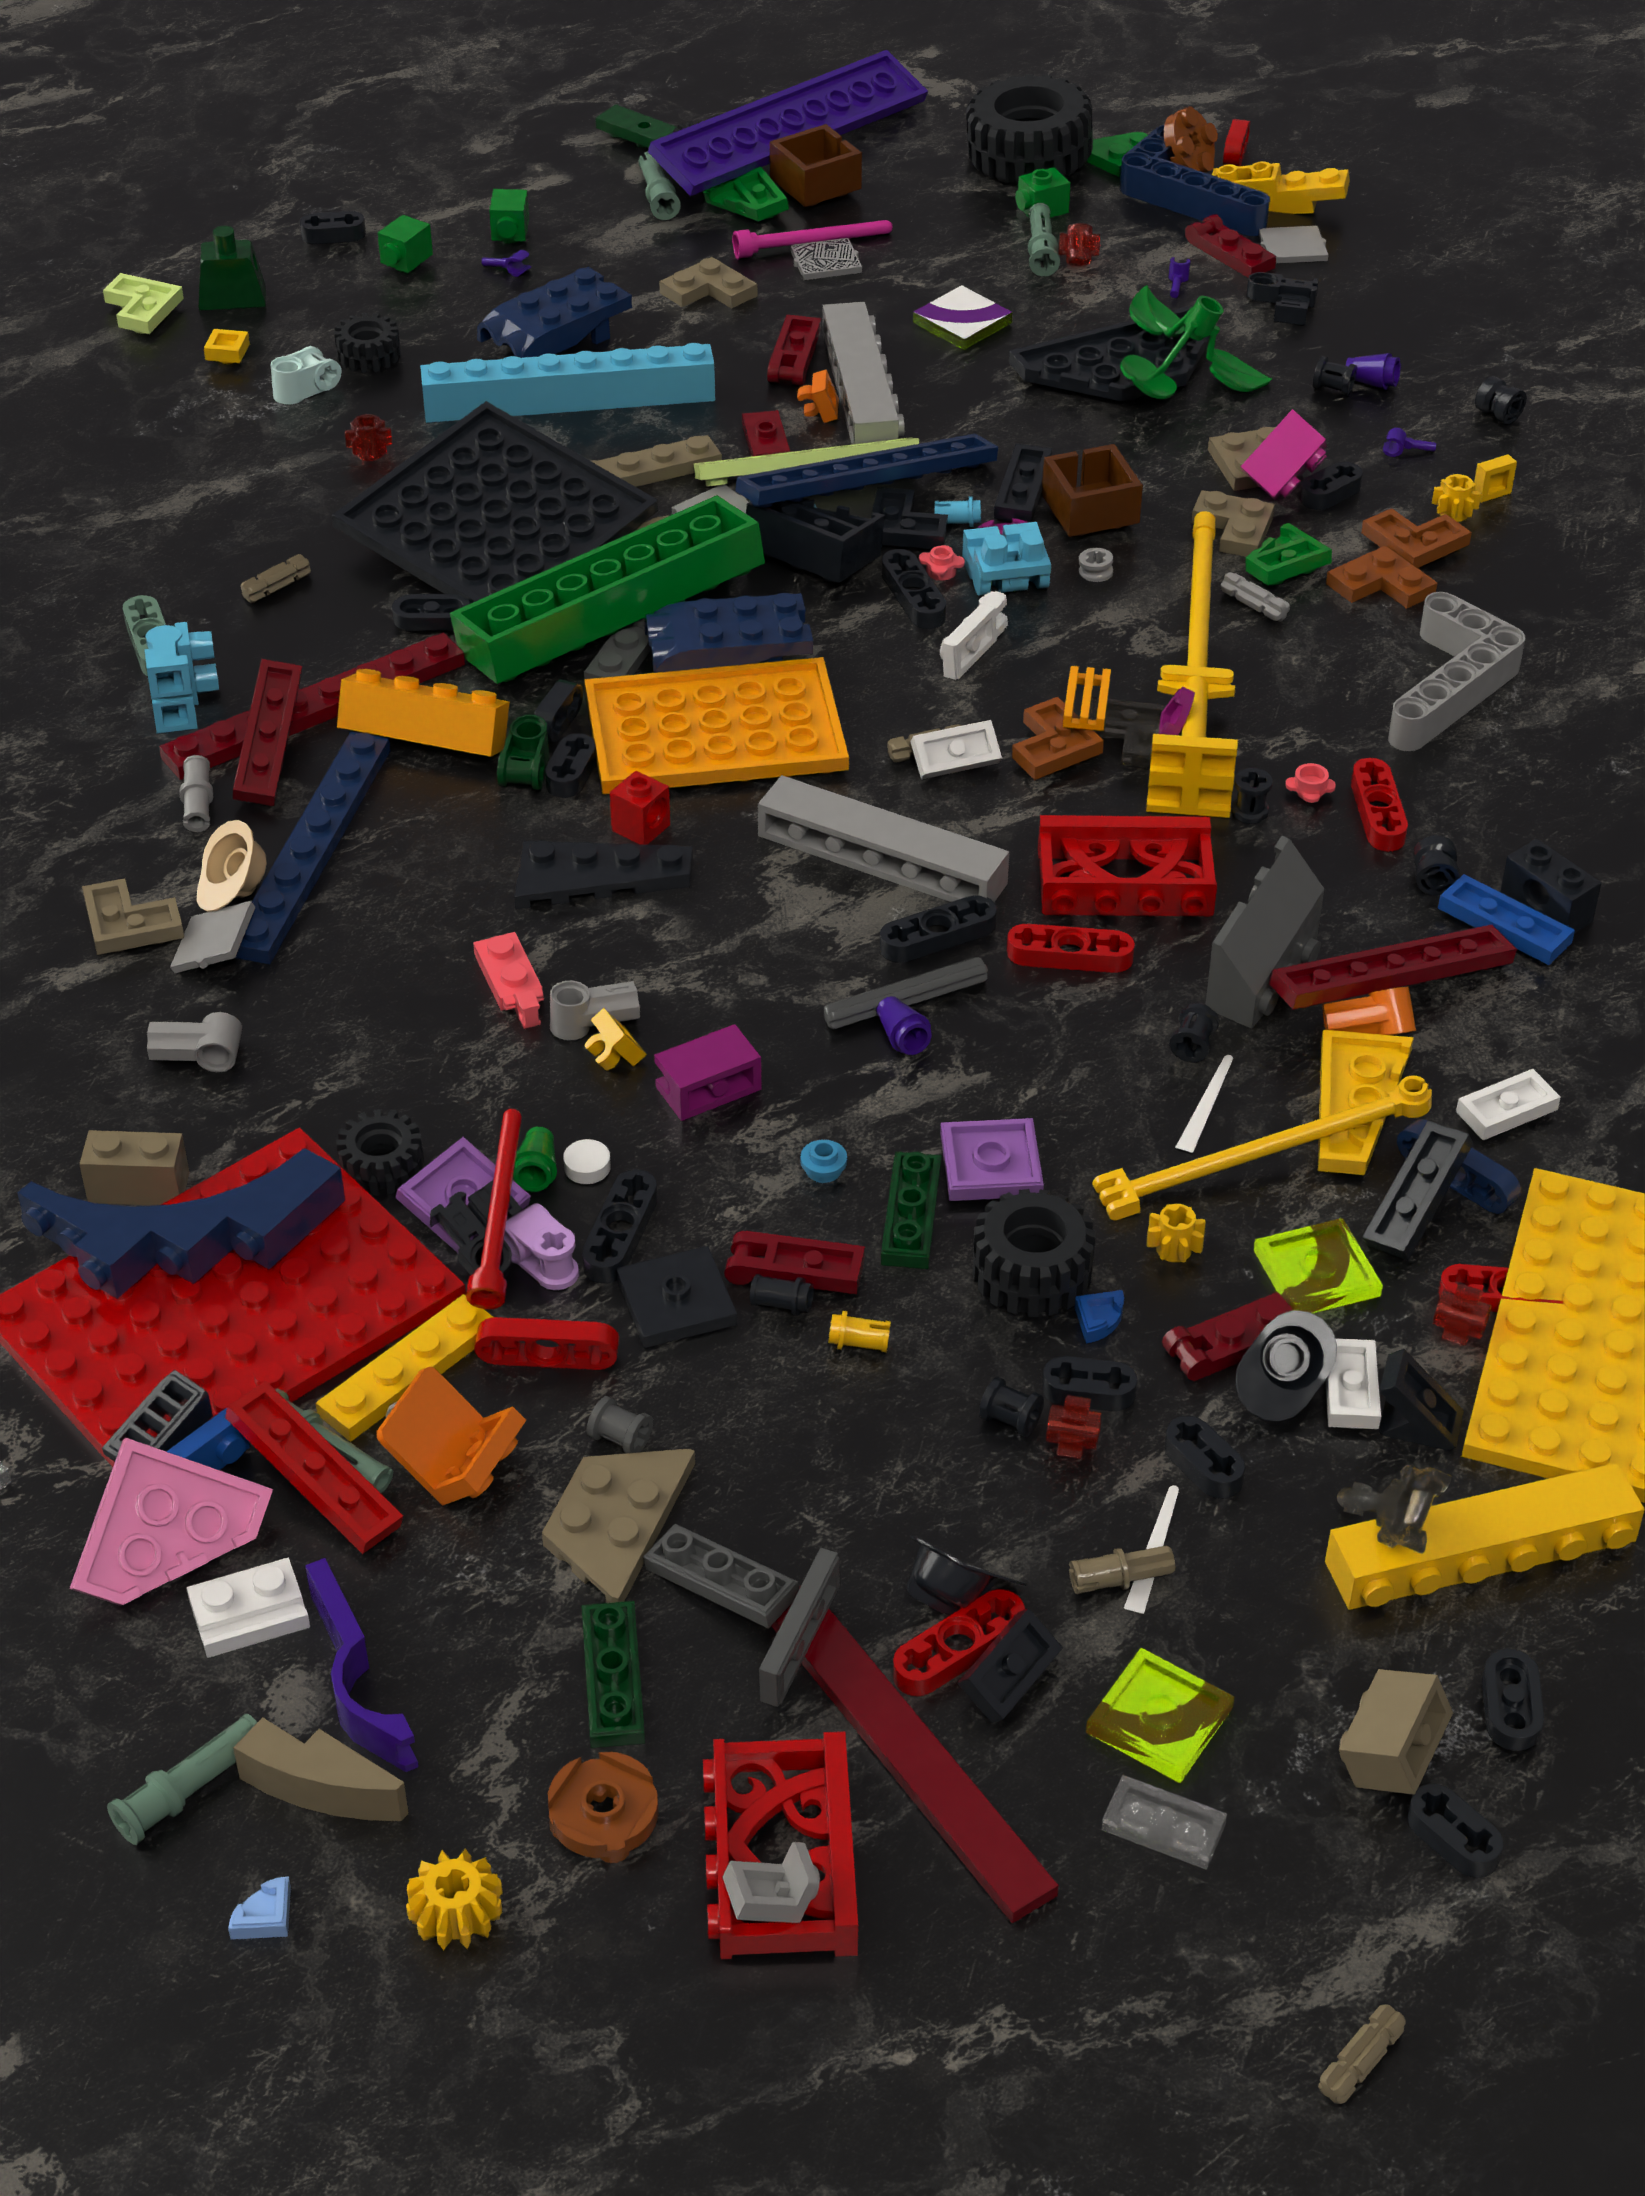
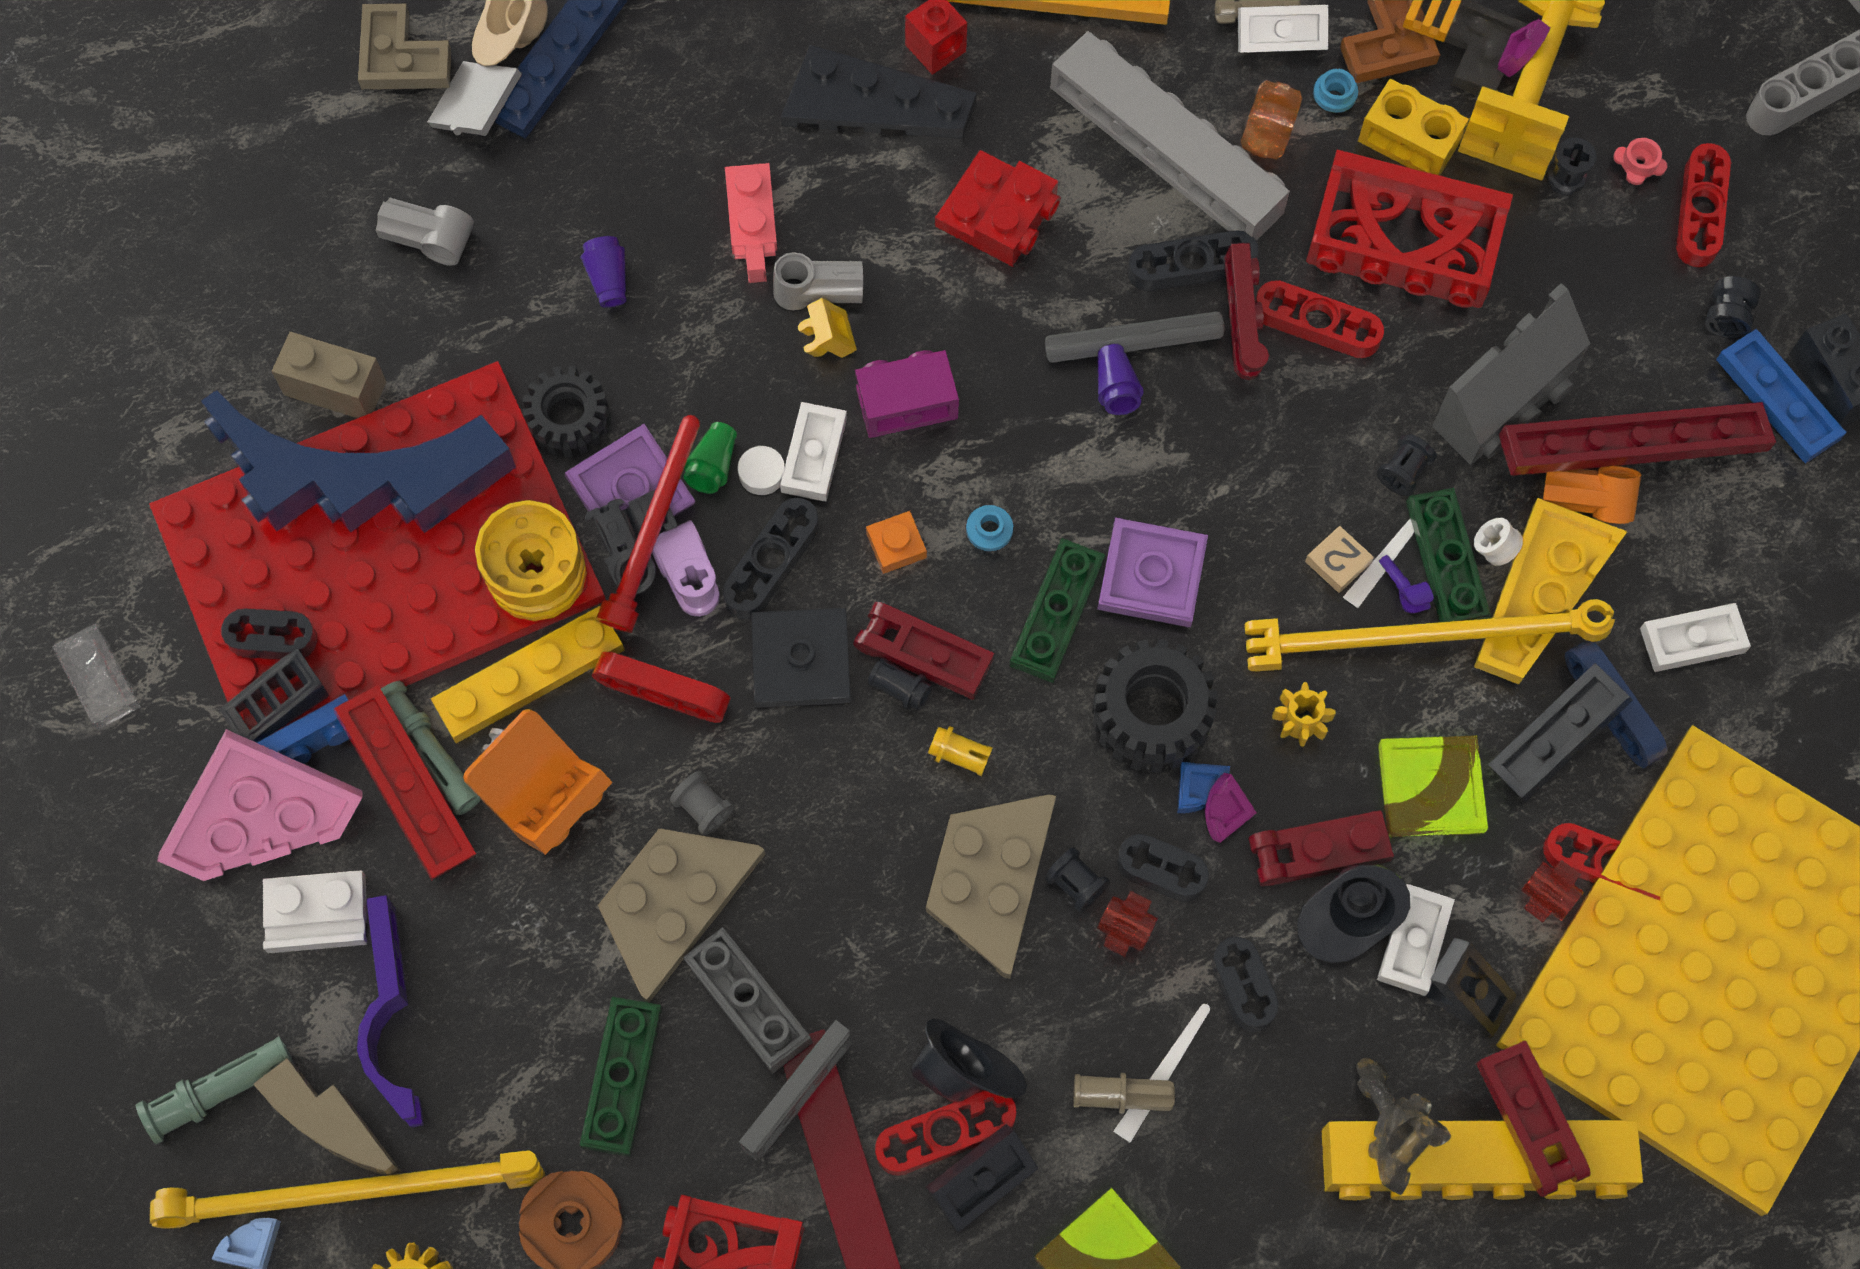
camera: 15 degrees right, 25 degrees up
(134, 1373) = (269, 623): none -> black beam
(176, 1894) = (176, 1210): none -> yellow hinge
(383, 1036) = (606, 269): none -> dark purple cone
(391, 1249) = (526, 535): none -> yellow wheel
(633, 1133) = (813, 451): none -> white plate
(737, 1189) = (896, 542): none -> orange plate
(744, 924) = (999, 207): none -> red plate
(925, 1427) = (990, 875): none -> dark tan wing
(972, 806) = (1271, 119): none -> clear orange gear
(1002, 948) = (1244, 312): none -> dark red plate
(1020, 785) = (1339, 81): none -> dark azure plate
(1100, 790) = (1408, 138): none -> yellow brick
(1132, 1321) = (1226, 808): none -> magenta tile
(1160, 1117) = (1339, 559): none -> tan tile
(1238, 1130) = (1412, 597): none -> dark purple hand
(1255, 1089) = (1442, 530): none -> dark green tile
(1301, 1069) = (1498, 541): none -> white bush
(1521, 1473) = (1533, 1117): none -> dark red plate

